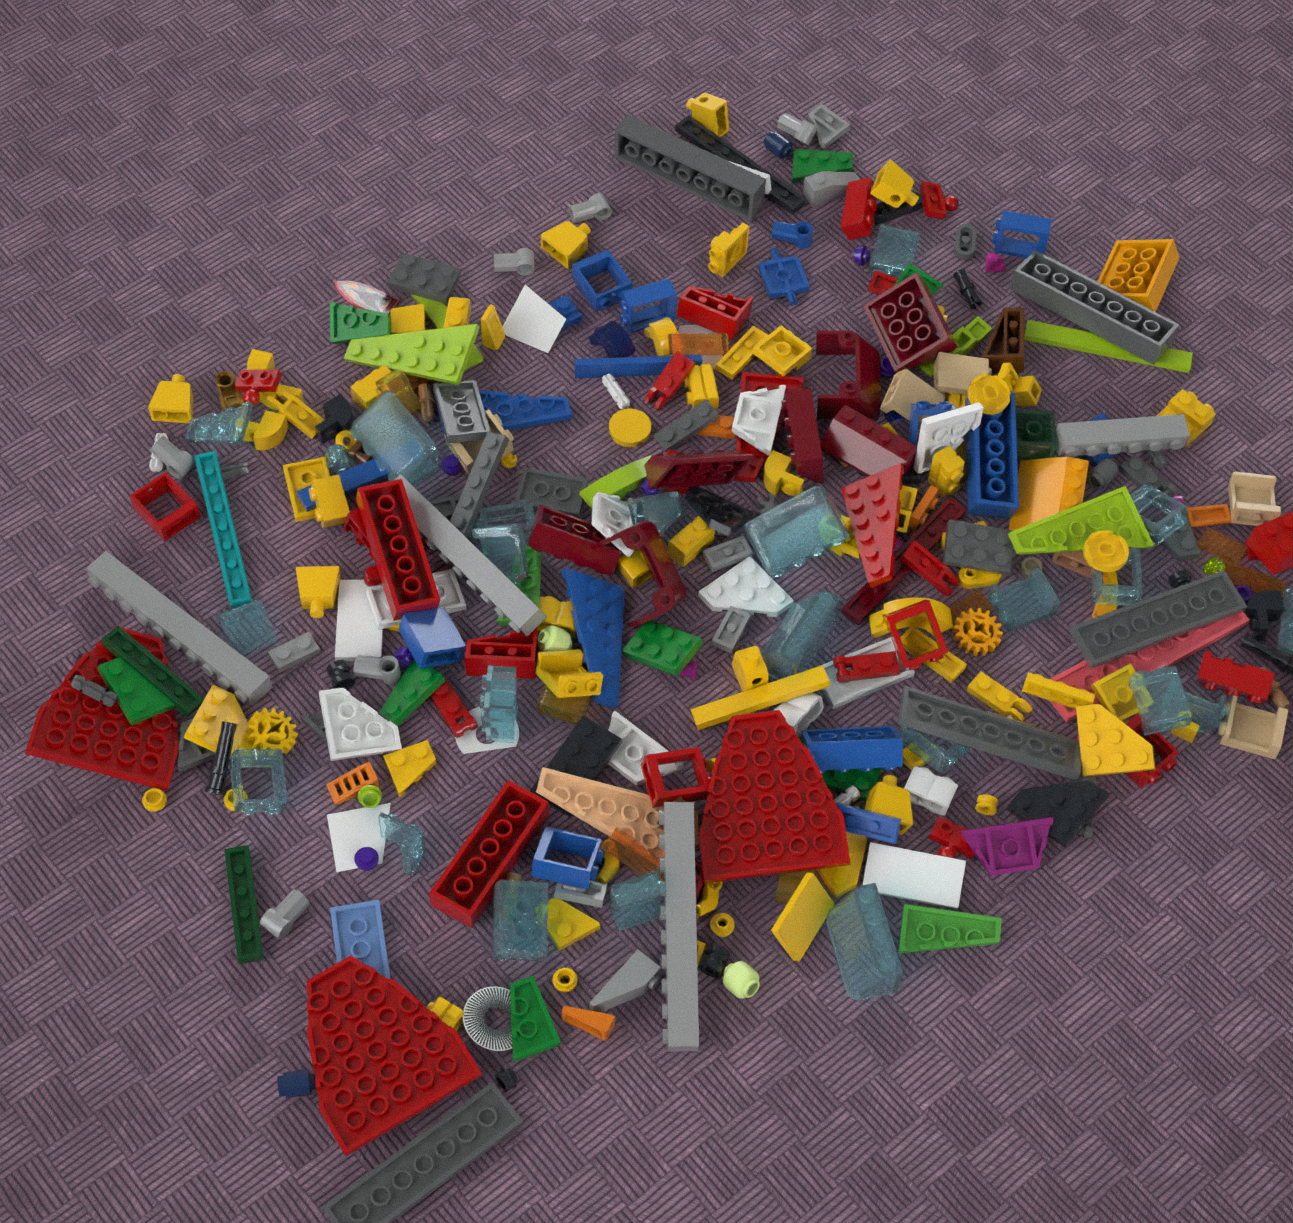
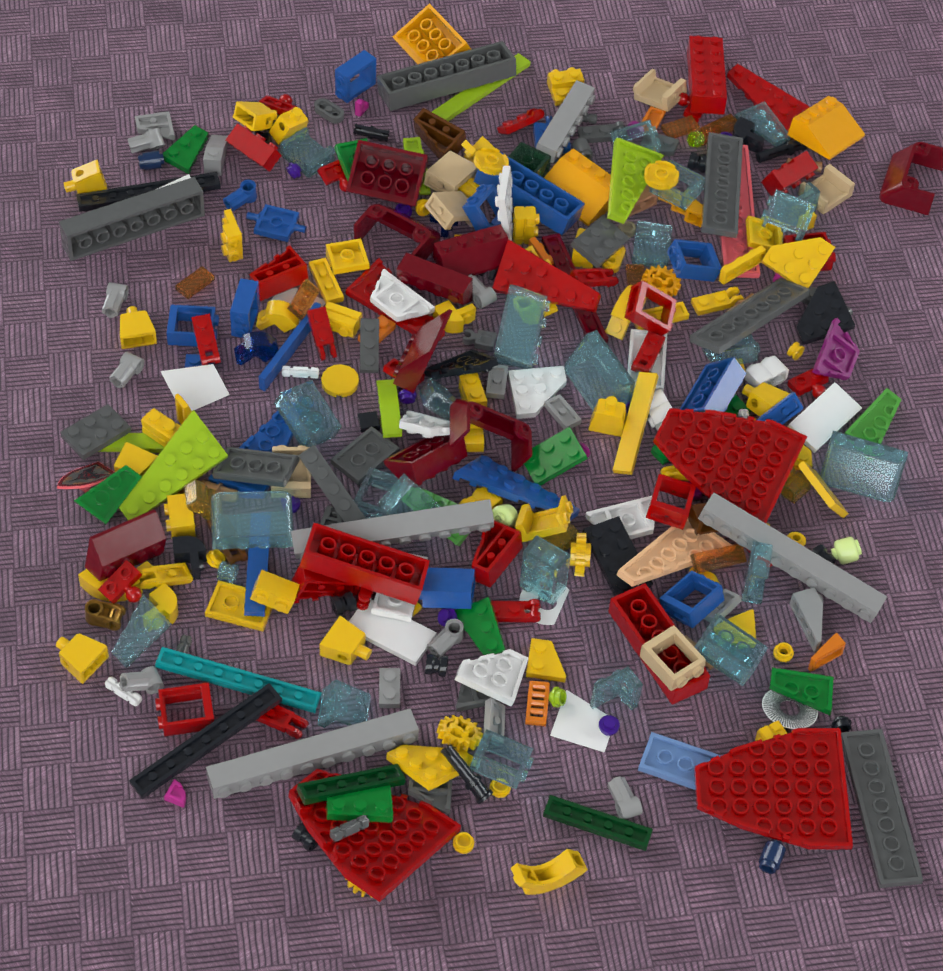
camera: 60 degrees left, 5 degrees down
(76, 549) = (176, 794): none -> dark pink tile
(138, 537) = (205, 741): none -> black plate
(149, 885) = (549, 875): none -> yellow arch
(202, 578) = (281, 718): none -> red hinge
(301, 362) = (130, 541): none -> dark red slope
(306, 756) = (494, 716): none -> light grey plate
(359, 562) = (343, 603): none -> black wheel
(471, 847) = (661, 642): none -> tan window
(549, 728) = (580, 554): none -> yellow gear
(553, 418) = (307, 414): none -> clear light blue brick
(585, 297) = (205, 339): none -> red plate
(595, 472) = (367, 420): none -> black tile
(660, 257) = (195, 282): none -> clear orange tile
(833, 478) = (481, 294): none -> light grey piece
(910, 217) = (292, 122): none -> yellow torso
(1042, 635) = (704, 251): none -> blue window
(1096, 402) = (522, 121): none -> red hinge

